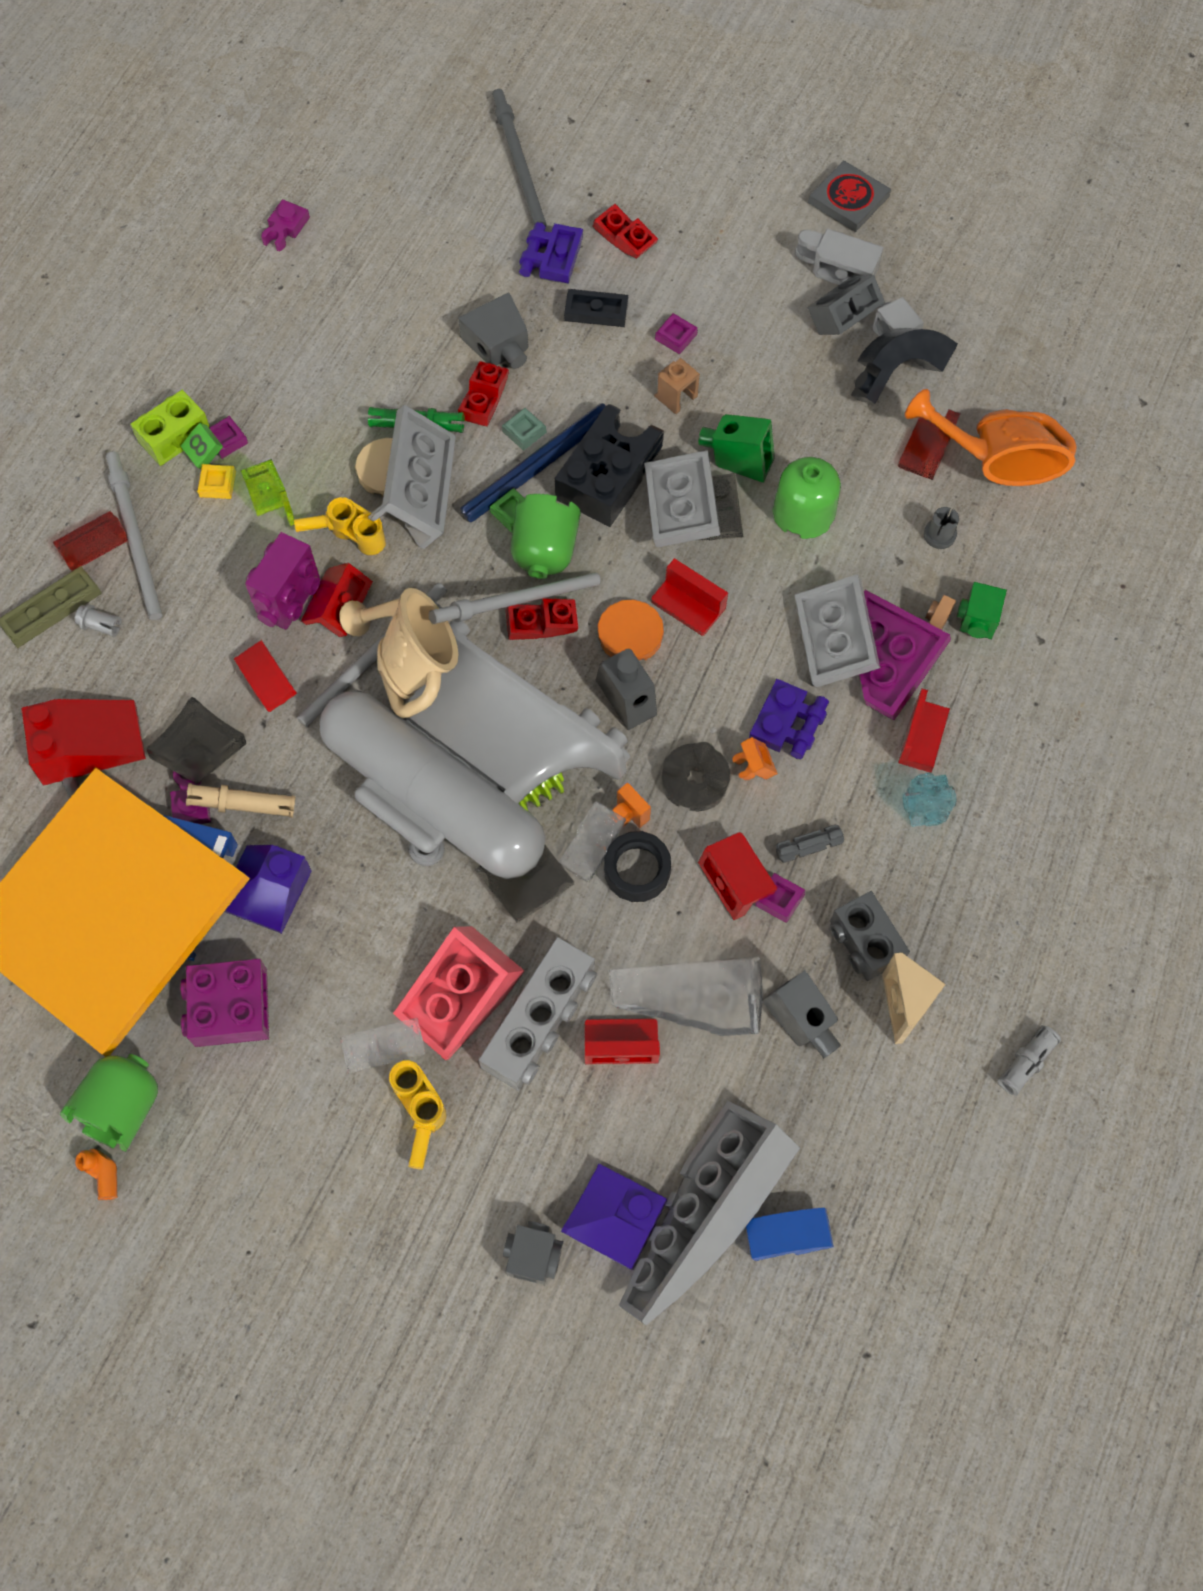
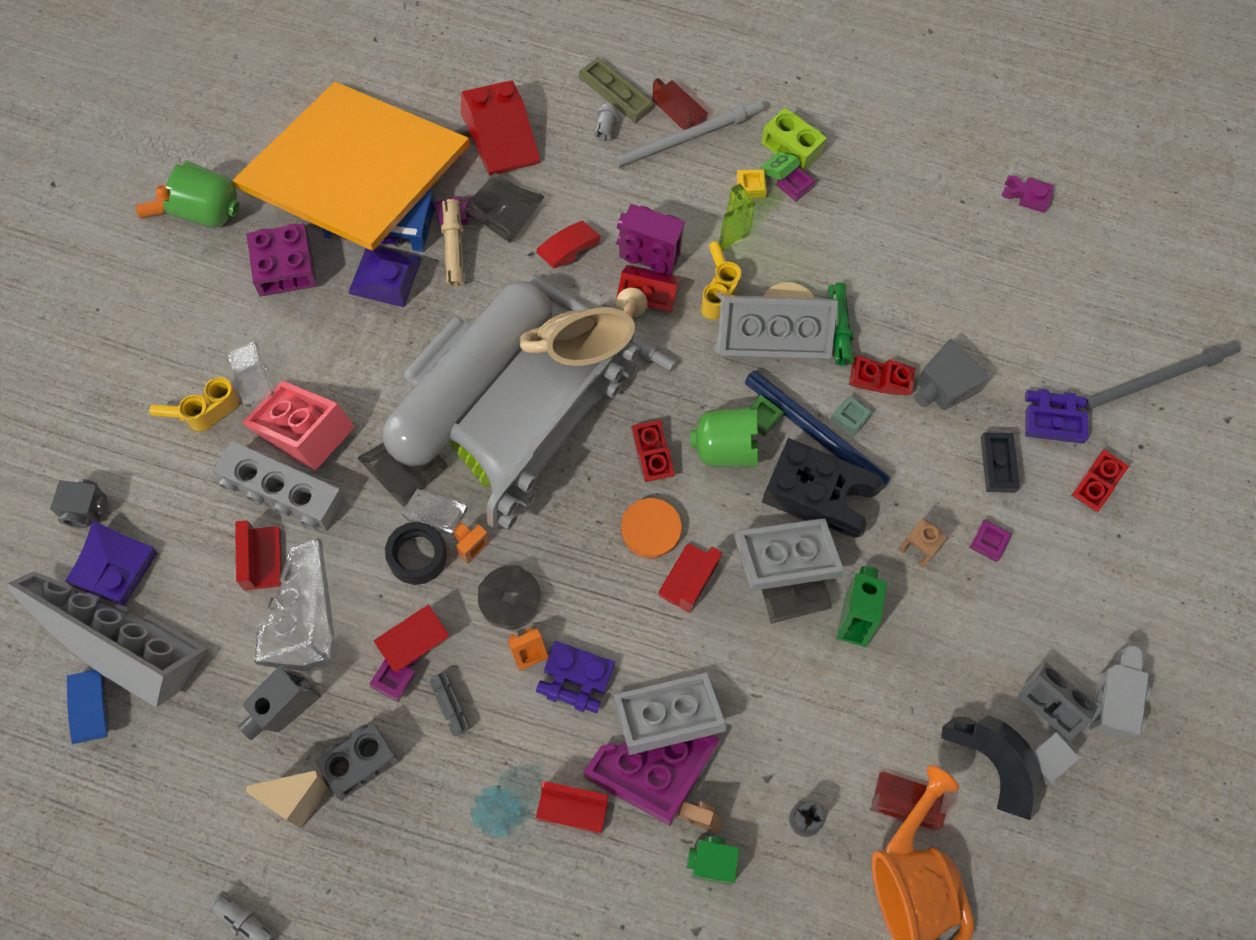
camera: 80 degrees right, 0 degrees up
(465, 609) = (622, 367): light grey bar -> none
(624, 682) = (586, 524): dark grey torso -> none
(807, 497) = (813, 675): bright green cylinder -> none
(849, 196) = (1211, 703): tile -> none

